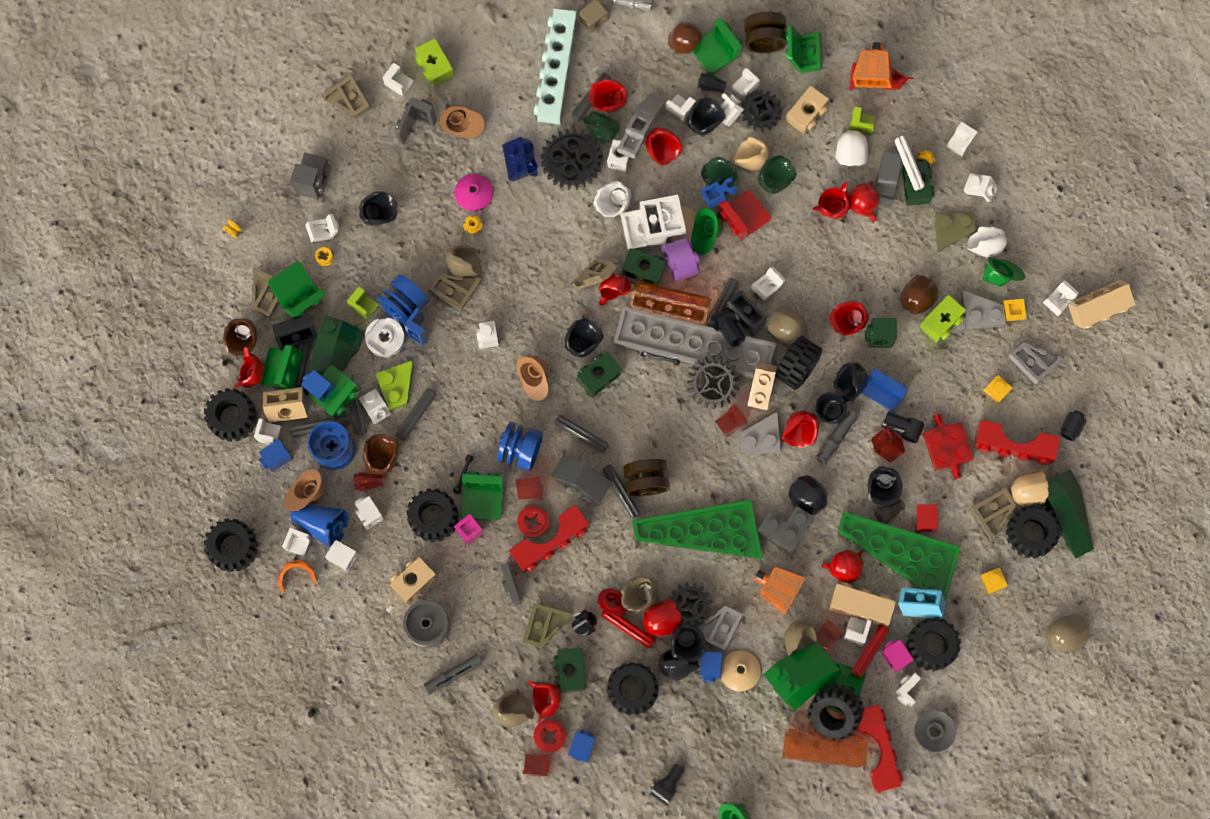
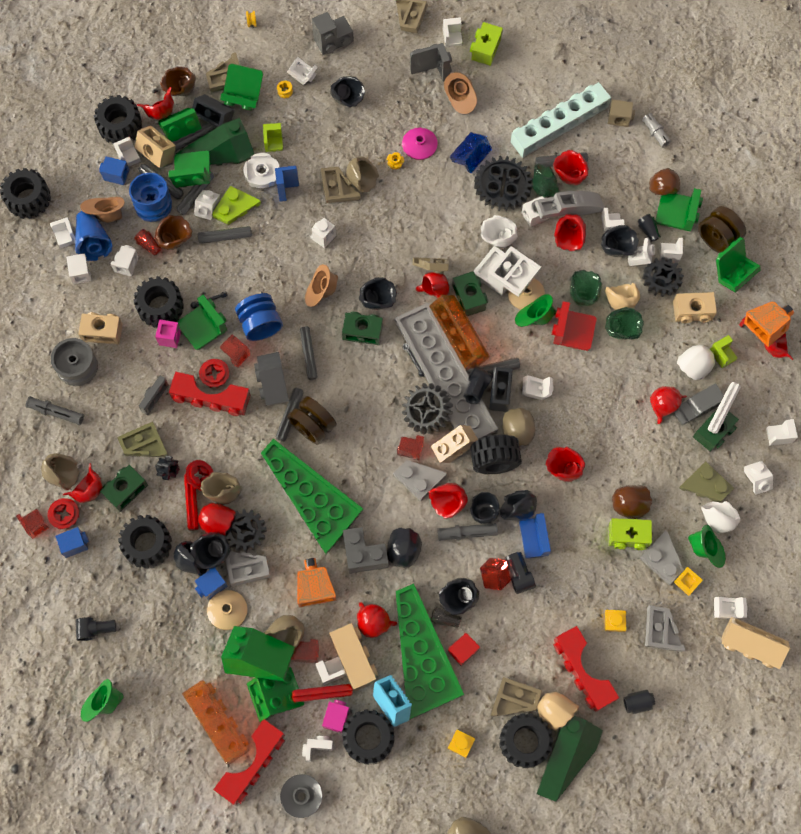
camera: 45 degrees right, 5 degrees down
(297, 563) = (52, 254): orange helmet -> none
(318, 385) = (184, 153): blue brick -> none
(403, 299) = (297, 156): blue wheel -> none
(680, 259) = (497, 311): medium lavender brick -> none
(715, 193) = (567, 292): blue plate -> none
(827, 724) = (235, 703): black tyre -> none
(834, 202) = (642, 381): red hair -> none
(881, 332) = (575, 495): dark green brick -> none
(926, 156) = (743, 419): yellow plate -> none
(948, 446) = (535, 620): red plate -> none

